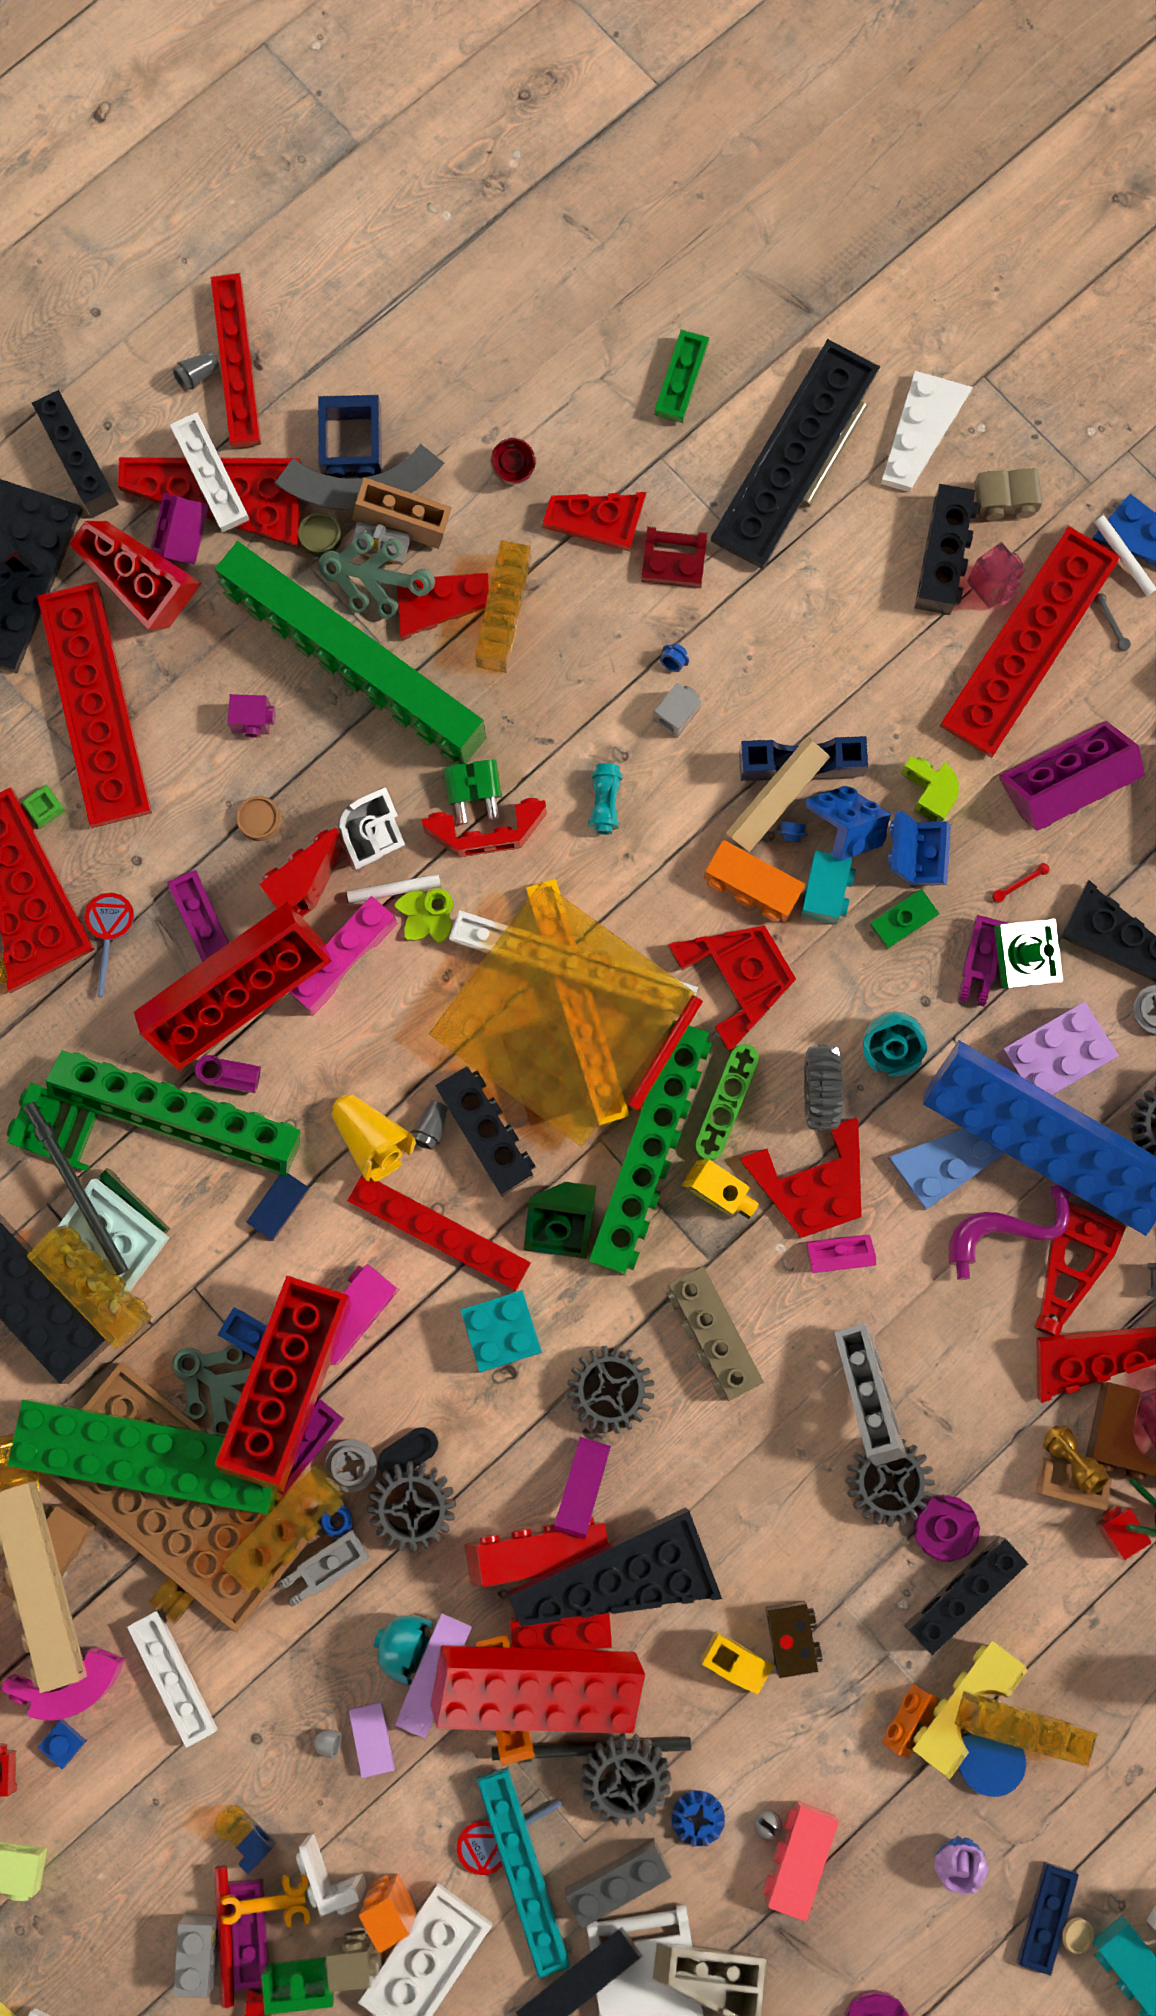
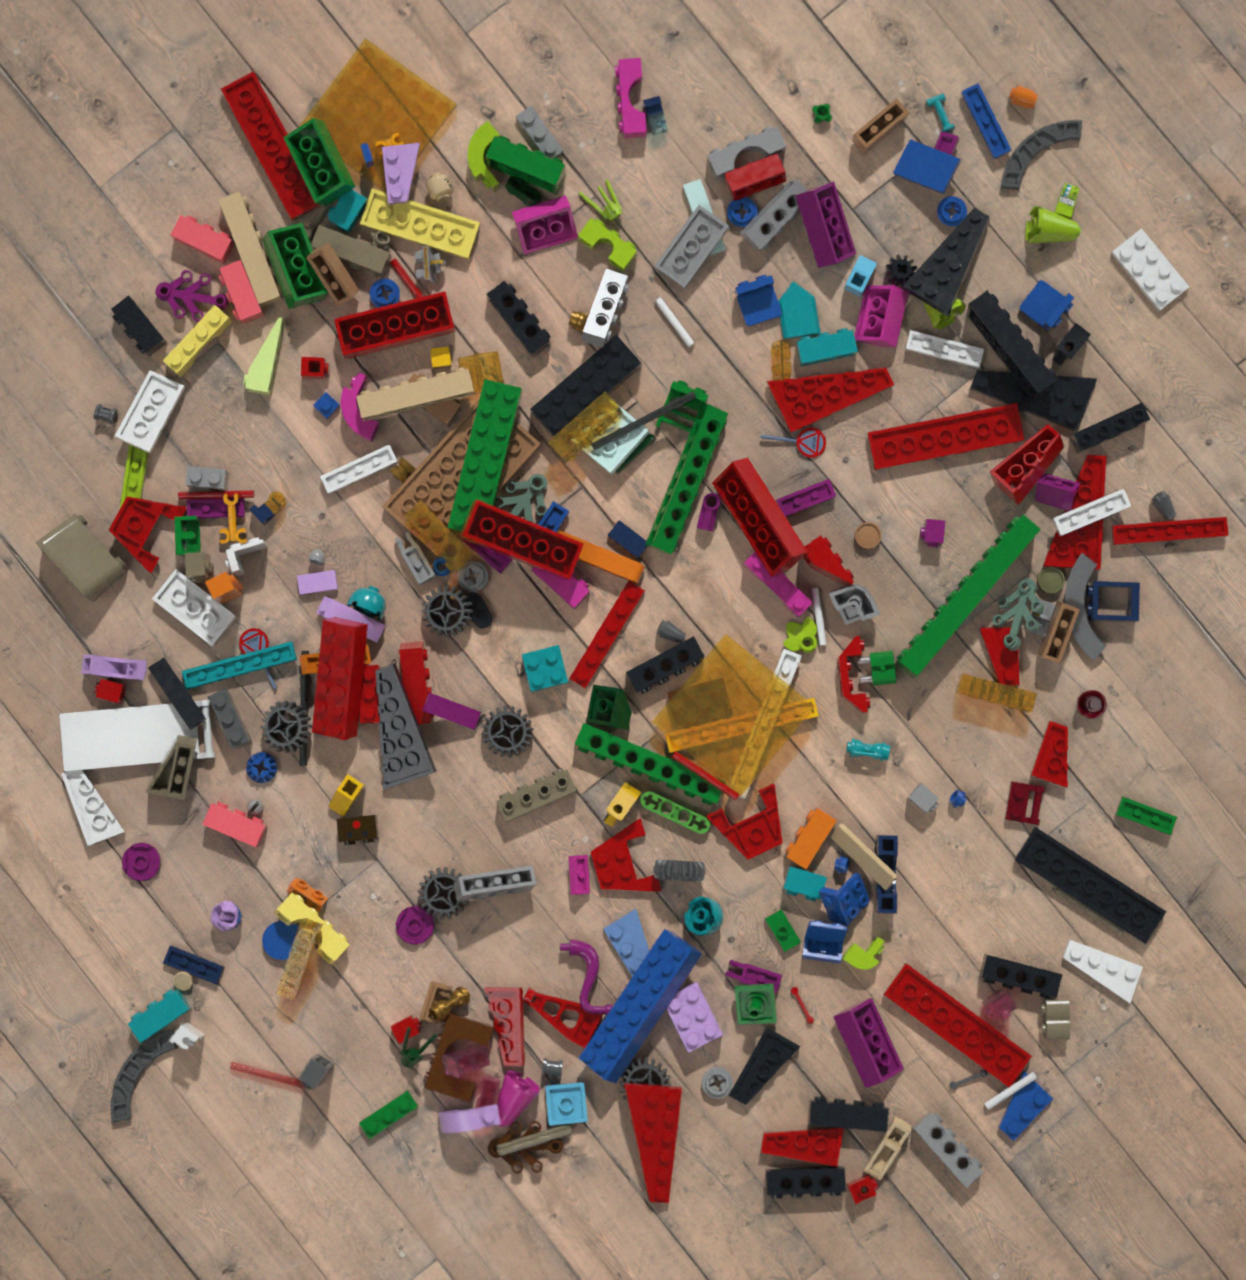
camera: 90 degrees right, 5 degrees up
(43, 806) = (882, 404): bright green tile -> none
(316, 1232) = (609, 561): none -> orange beam
(371, 1137) = (665, 596): yellow cone -> none
(966, 1594) = (376, 932): black brick -> none

